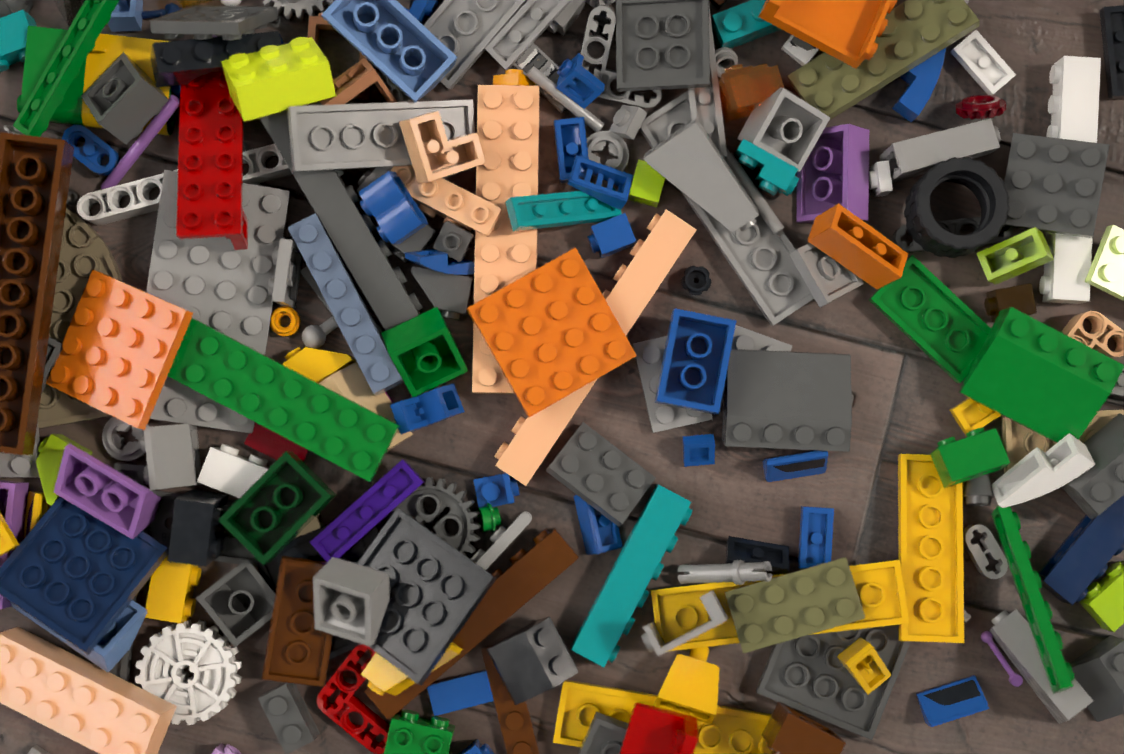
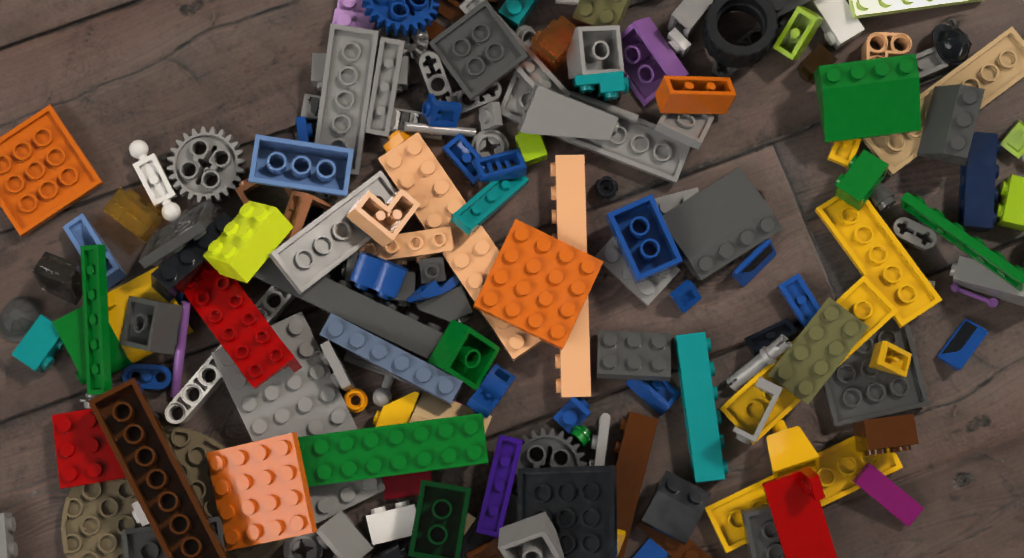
camera: 35 degrees left, 5 degrees down
(169, 8) = (137, 250): dark blue hand -> none
(611, 236) = (532, 196): blue brick -> none
(933, 318) = (775, 108): green plate -> none
(1042, 472) = (913, 156): white slope -> none

